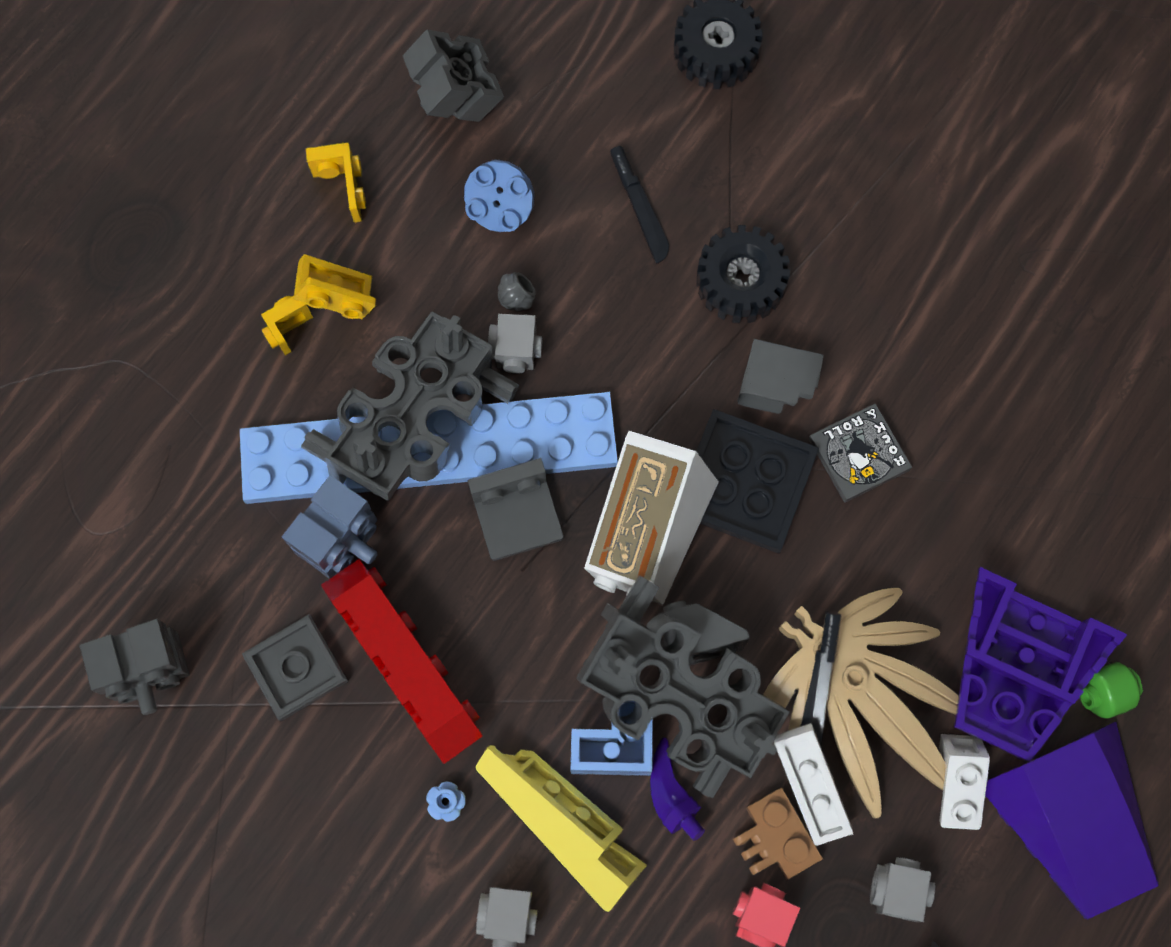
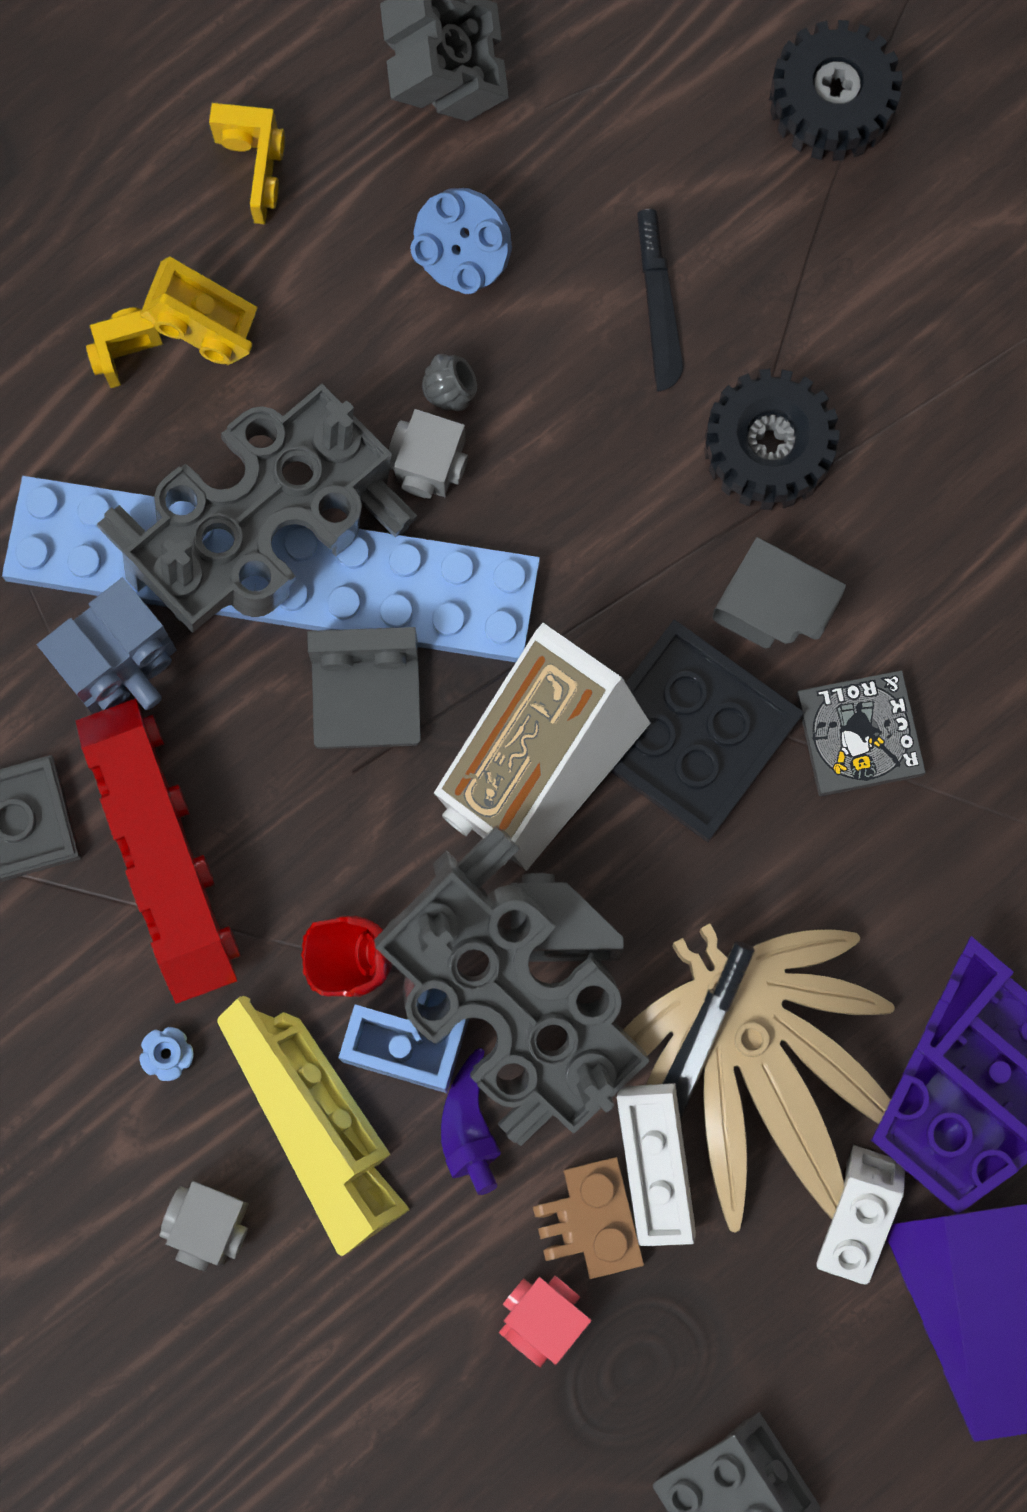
camera: 15 degrees right, 5 degrees up
(554, 698) = (343, 957): none -> red hair
(902, 890) = (736, 1334): light grey brick -> none

